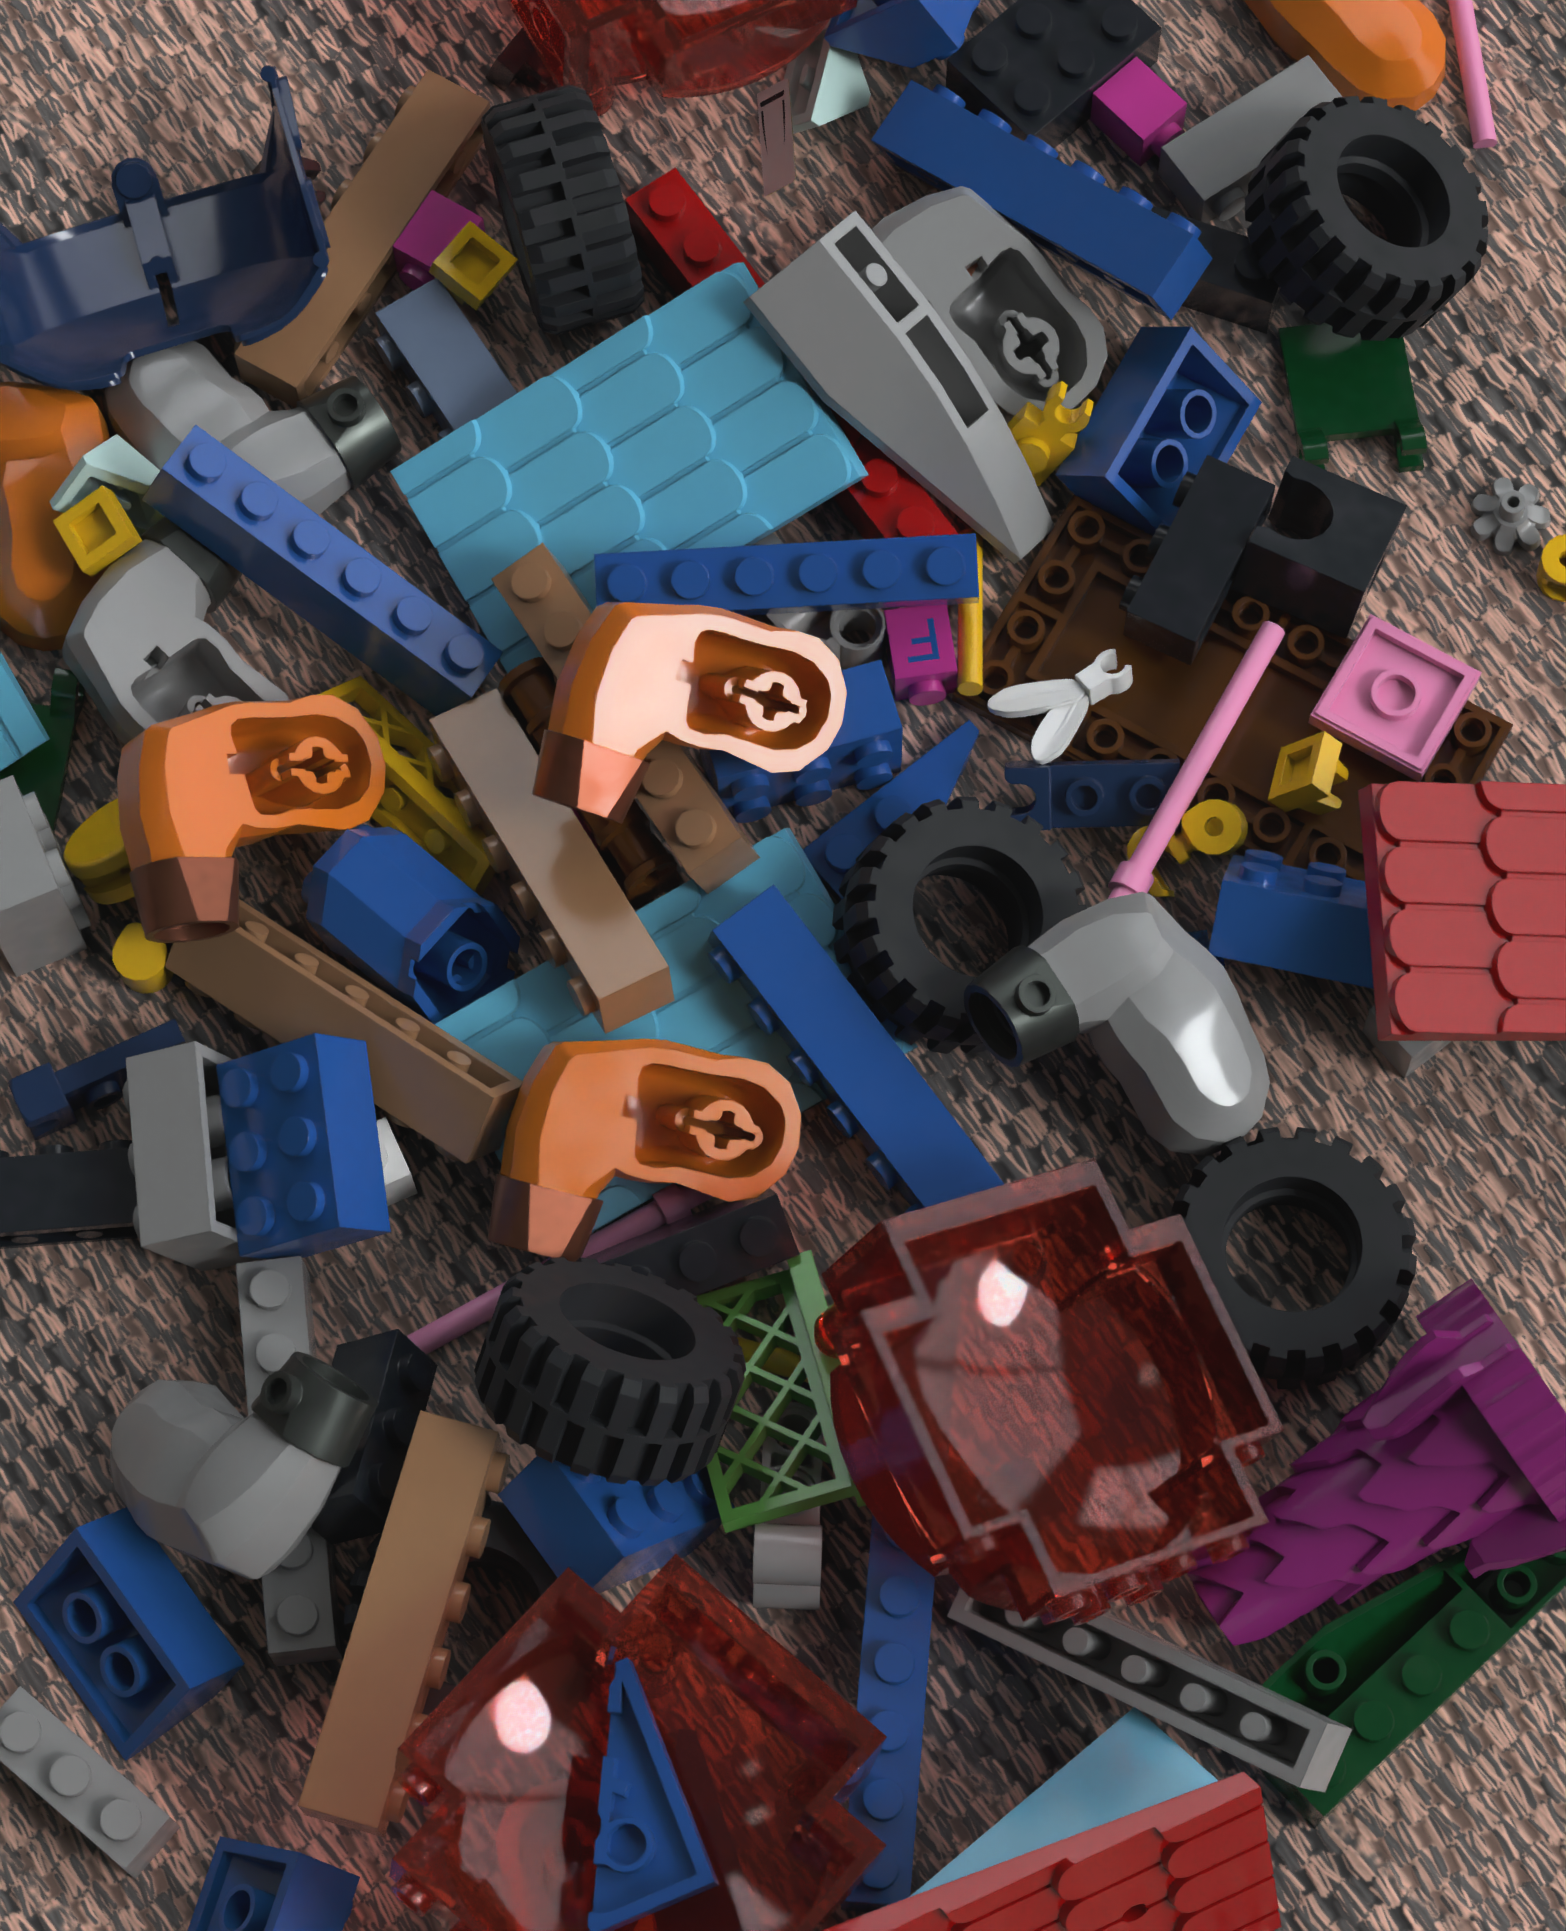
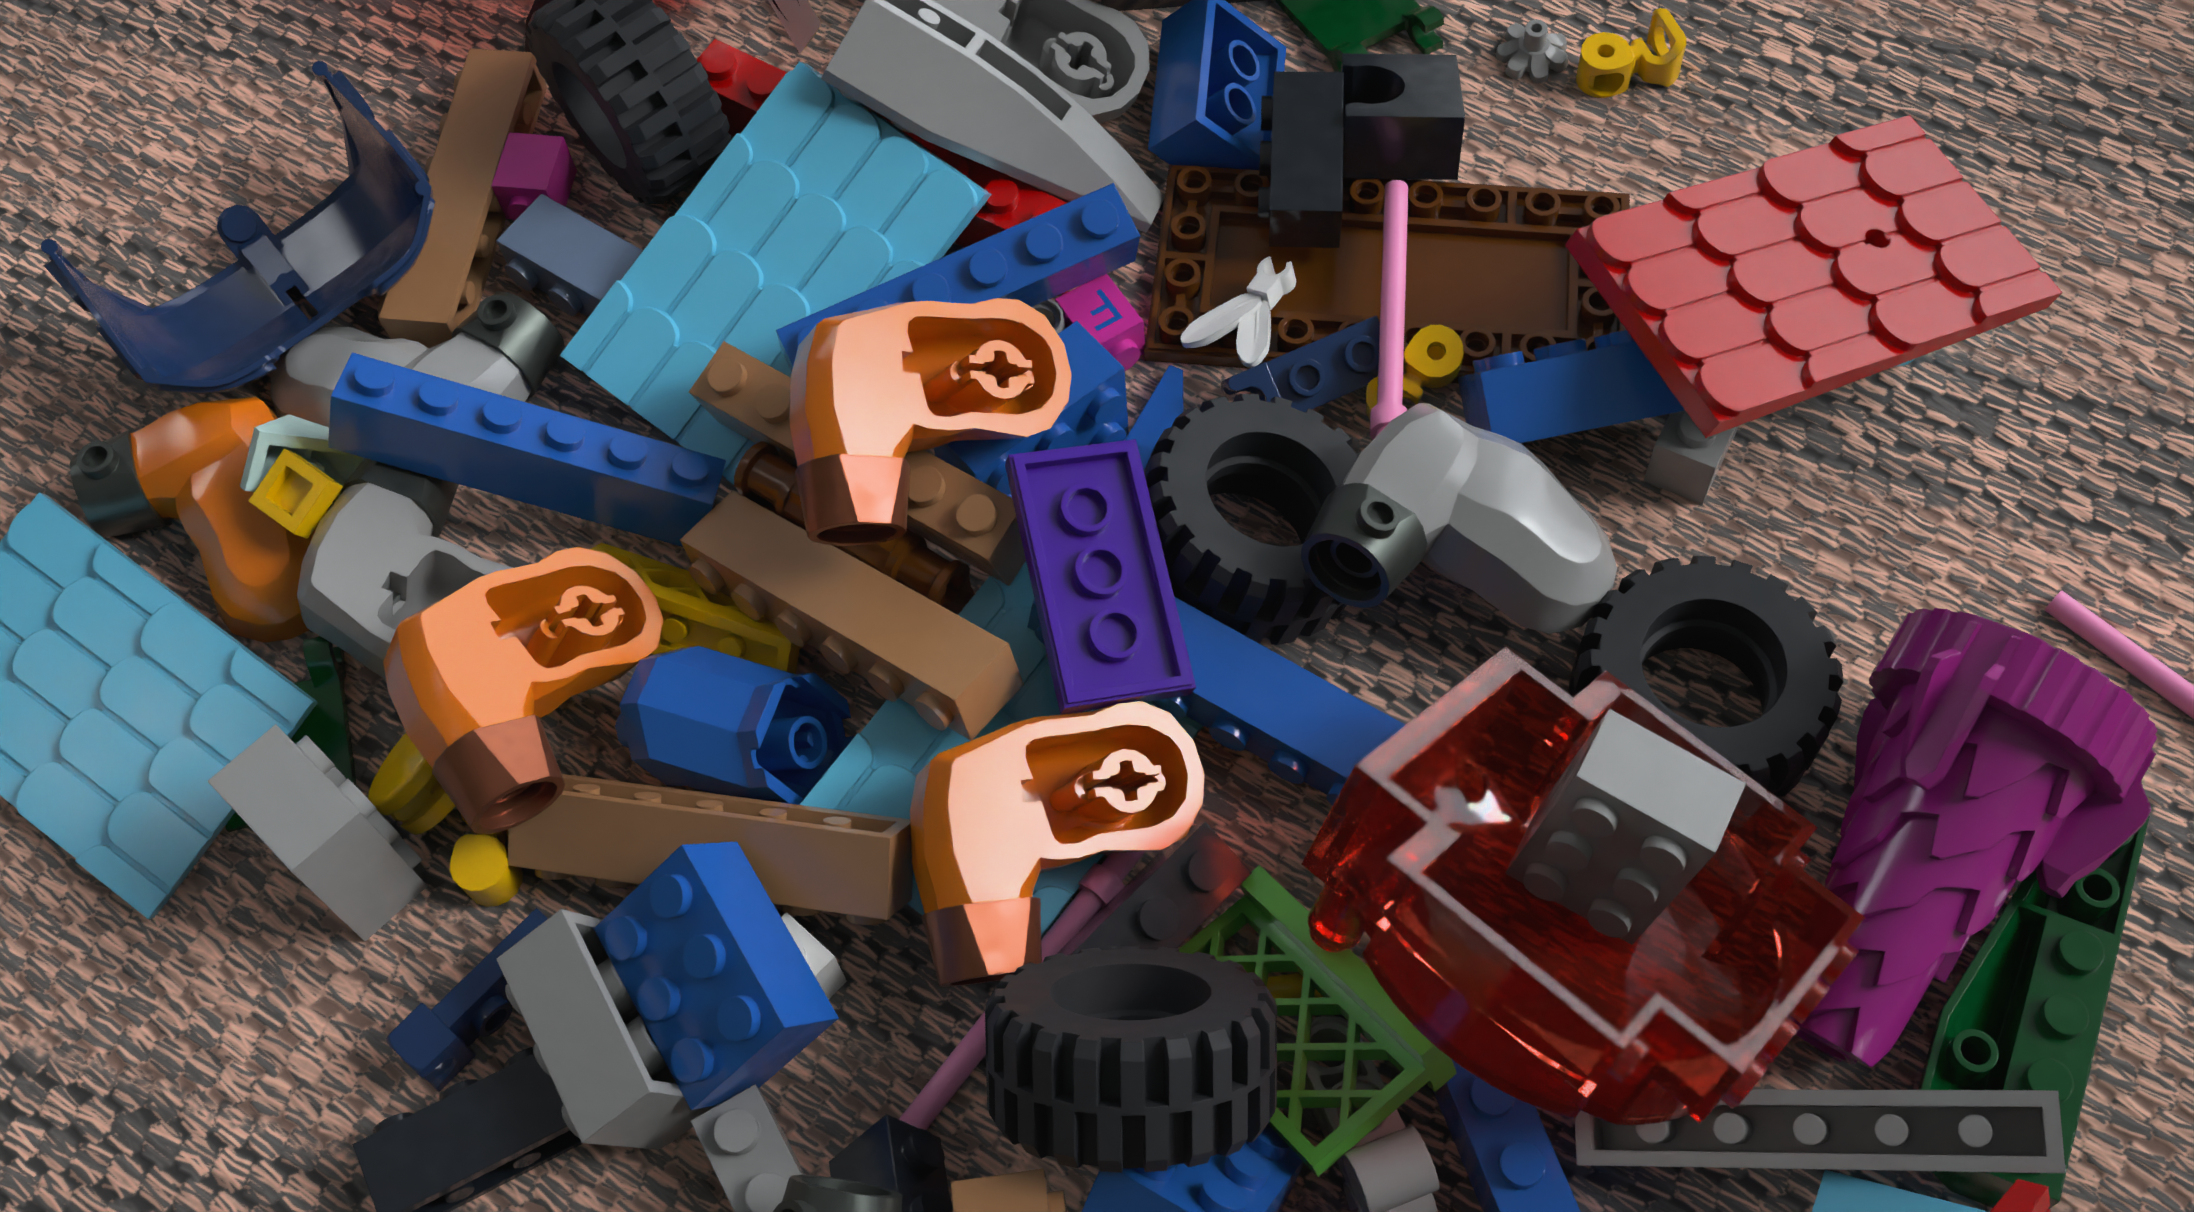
camera: 20 degrees left, 10 degrees down
(472, 266) = (568, 172): yellow tile -> none
(780, 931) = (1099, 576): none -> dark purple tile
(971, 634) = (1142, 301): yellow bar -> none
(1049, 434) = (1125, 116): yellow plate -> none
(1107, 1360) = (1625, 828): none -> light grey brick
(1307, 774) = (1487, 288): yellow tile -> none
(1394, 697) = (1524, 202): bright pink tile -> none

